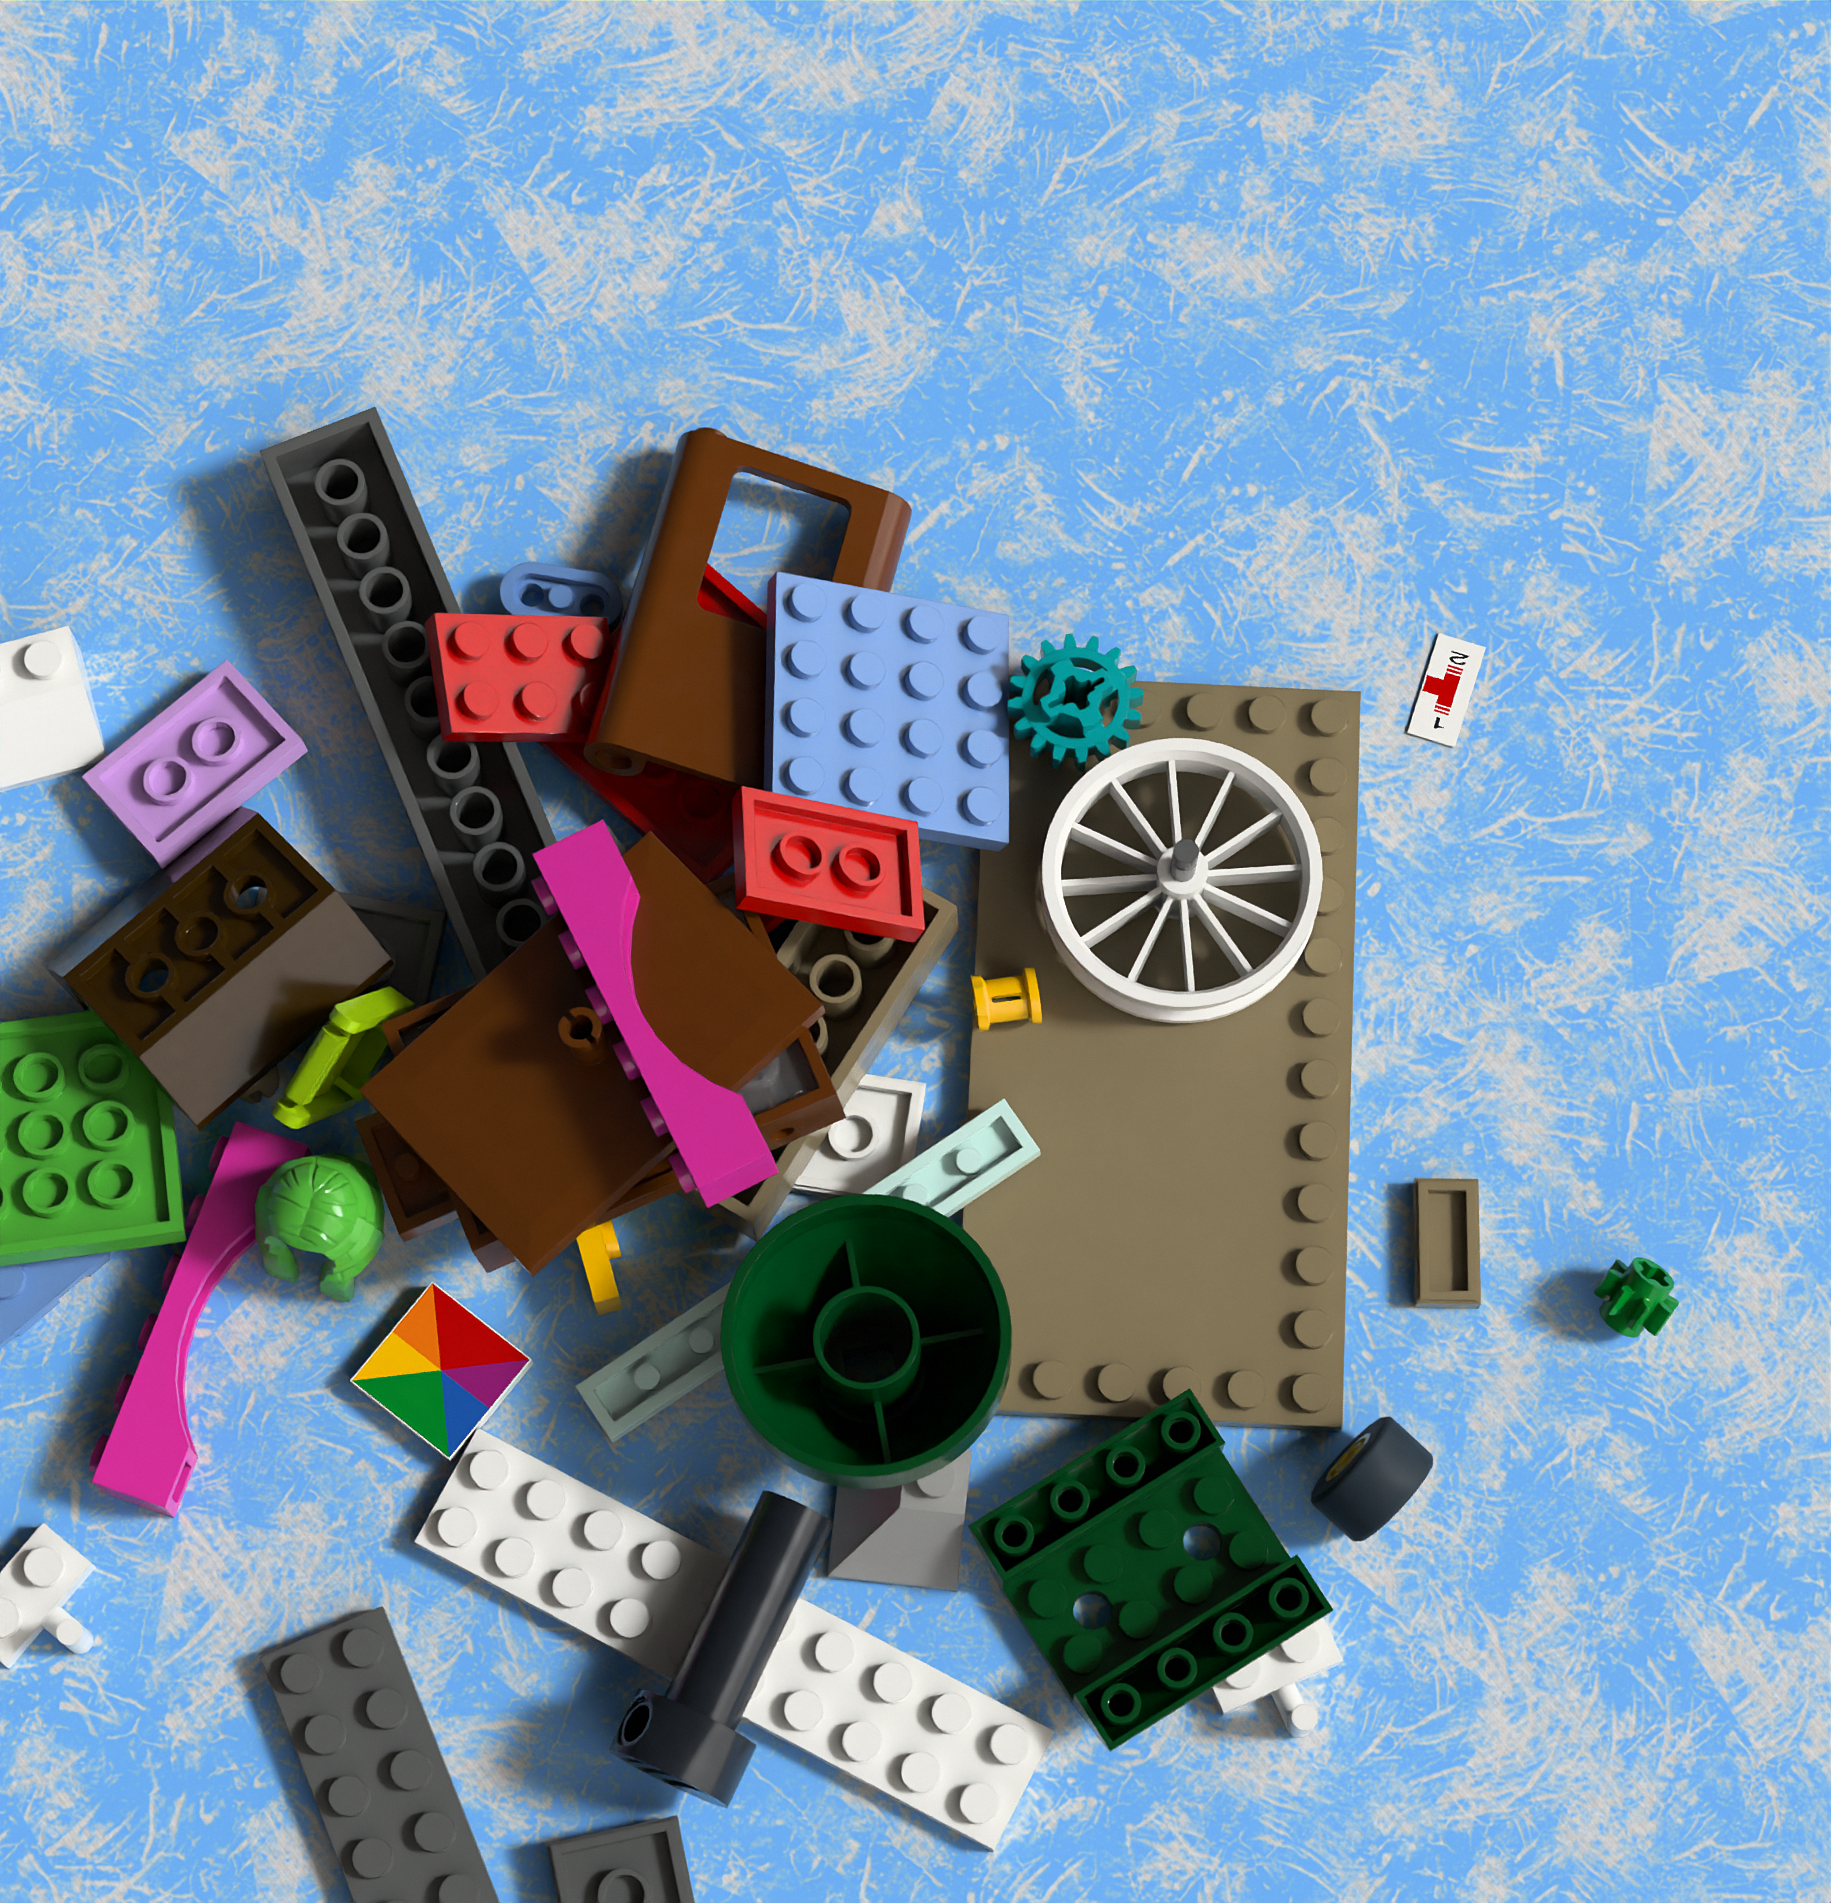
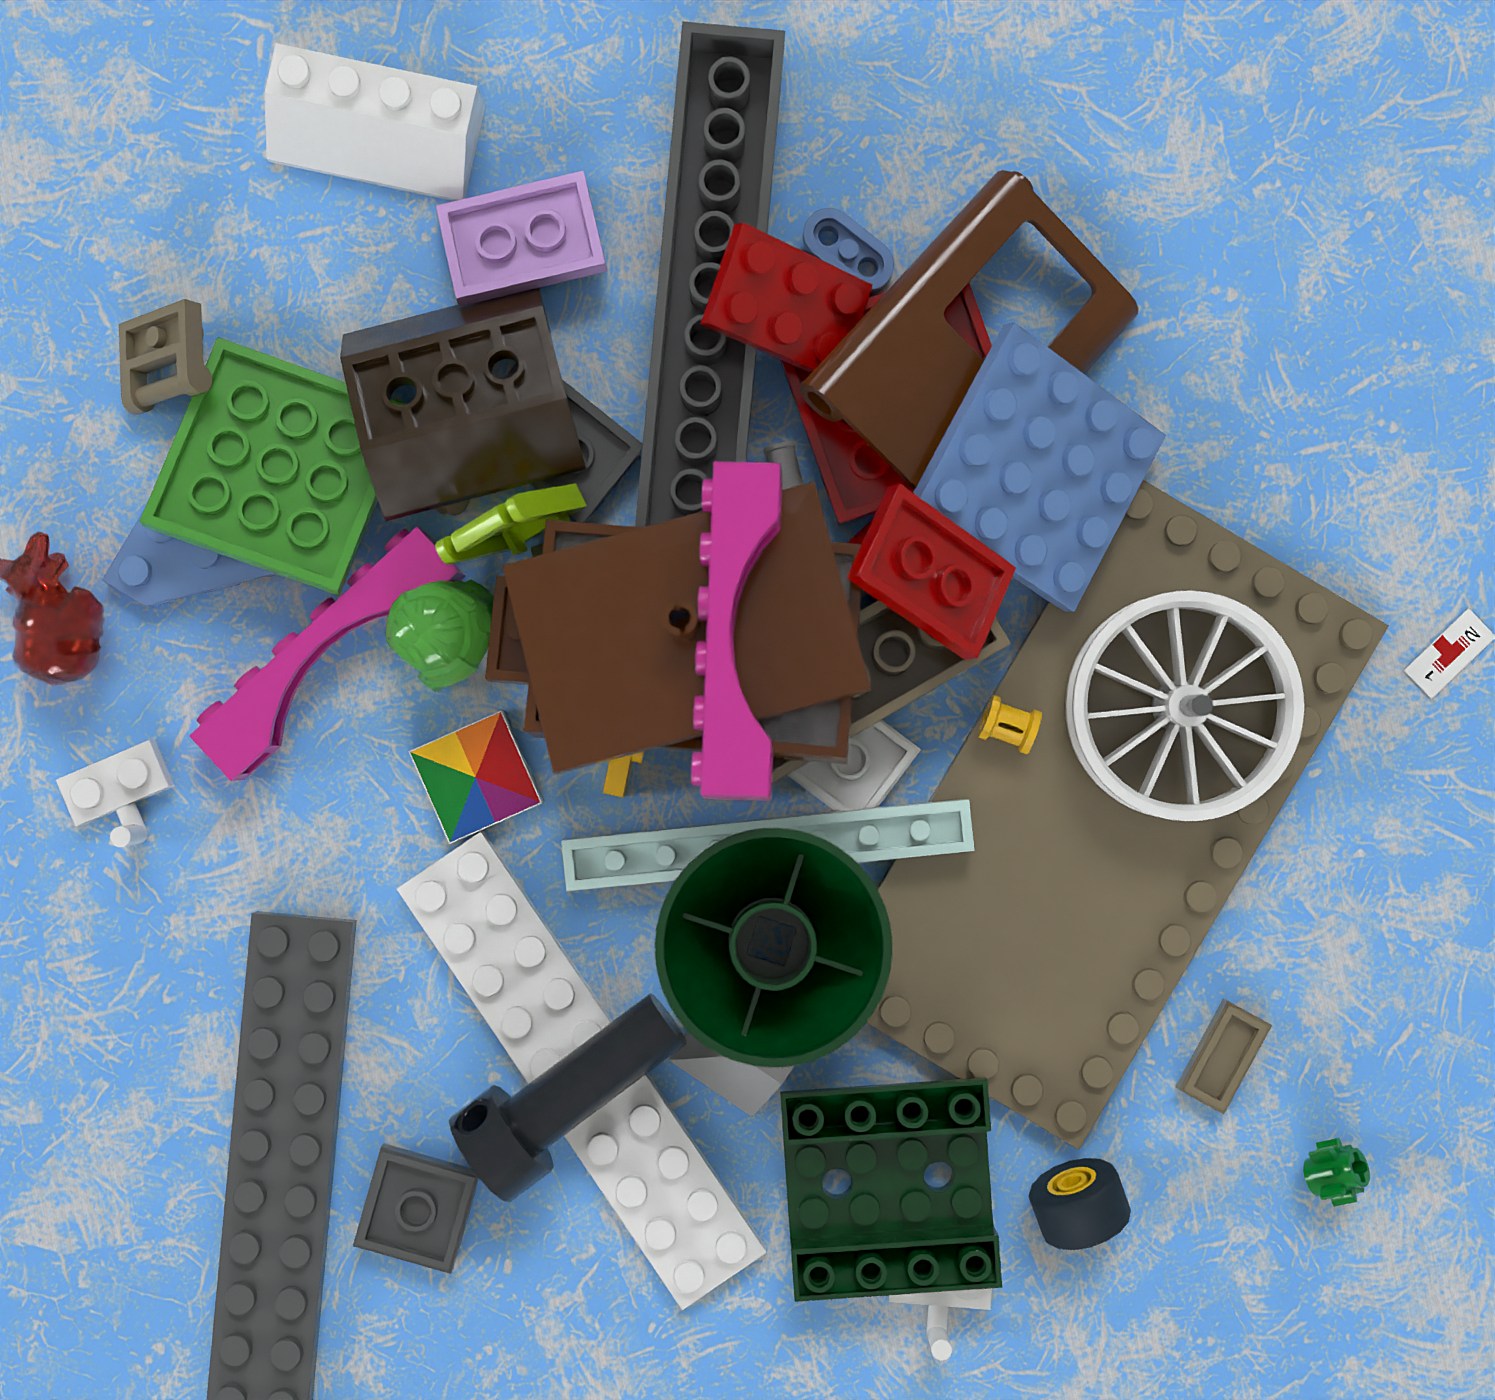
camera: 30 degrees right, 15 degrees up
(1065, 680) = (1182, 510): teal gear -> none

